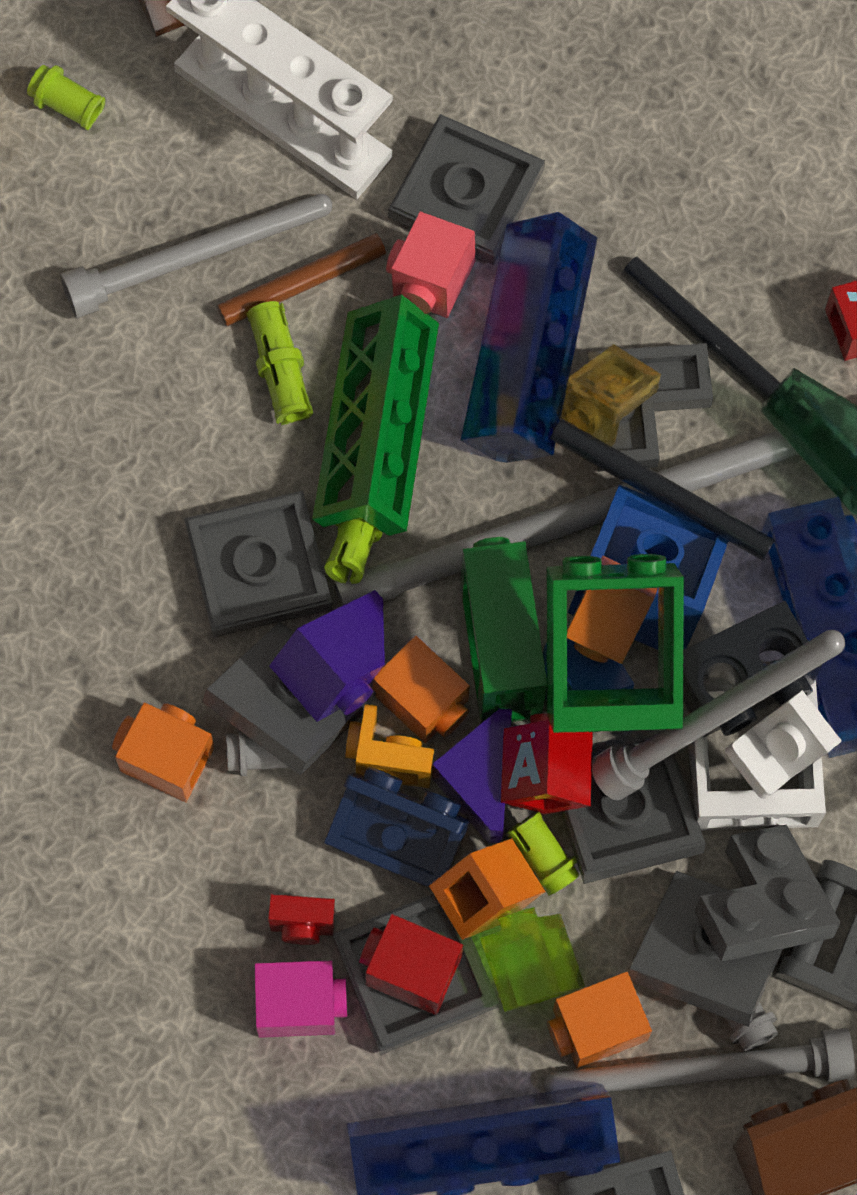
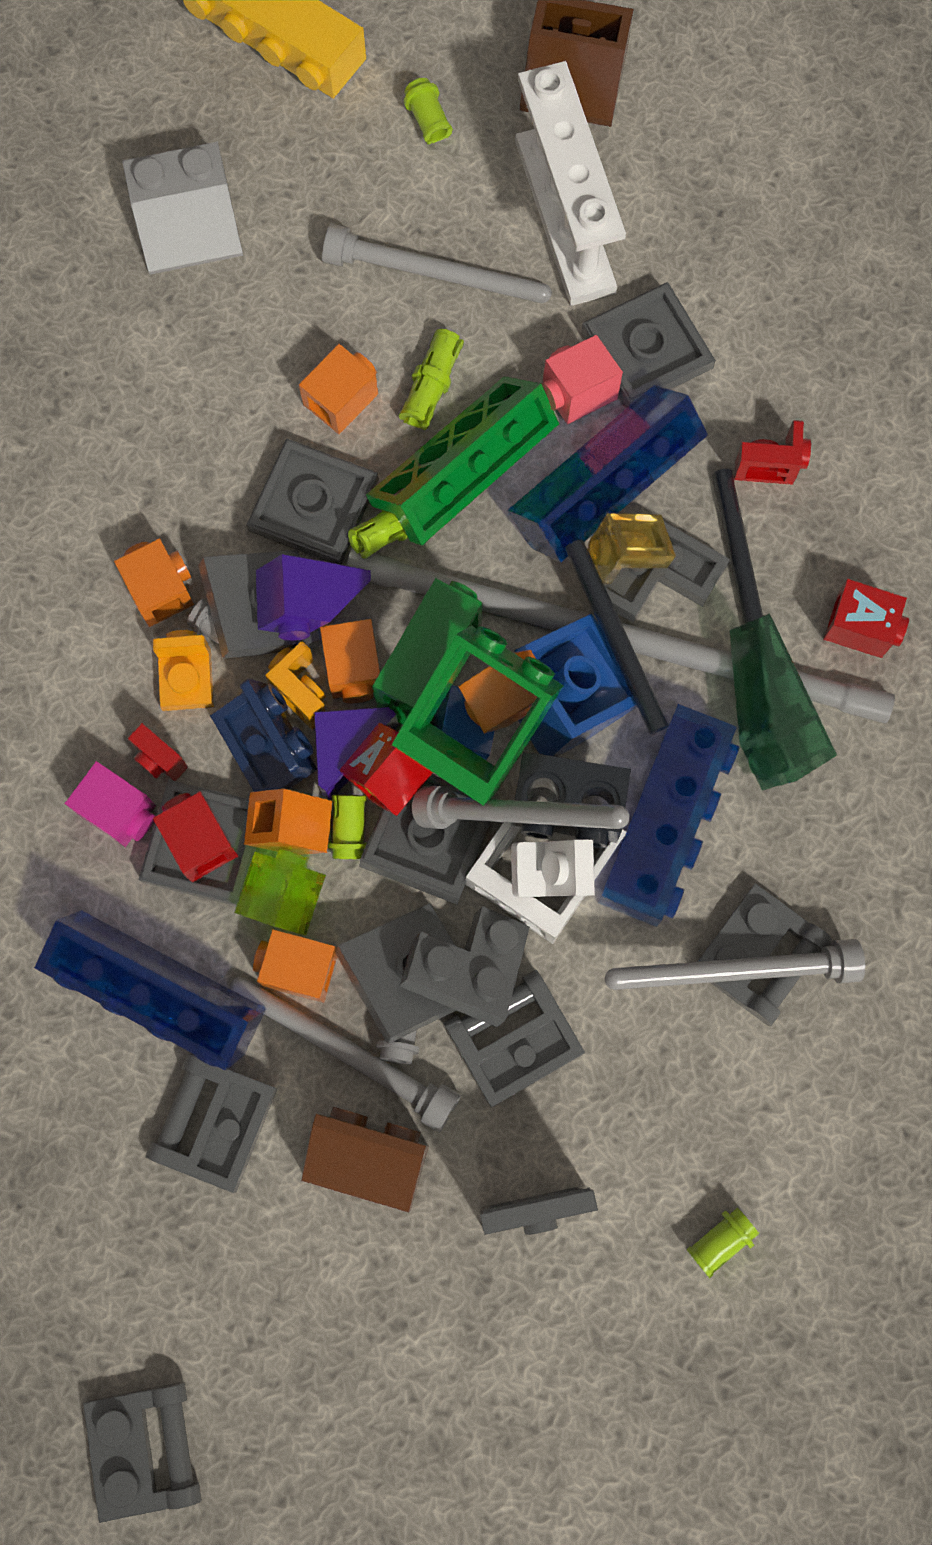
camera: 40 degrees right, 5 degrees up
(199, 432) = (339, 388): none -> orange brick
(261, 819) = (184, 671): none -> light orange bracket
(303, 278) = (492, 333): dark orange bar -> none
(671, 225) = (774, 463): none -> red bracket

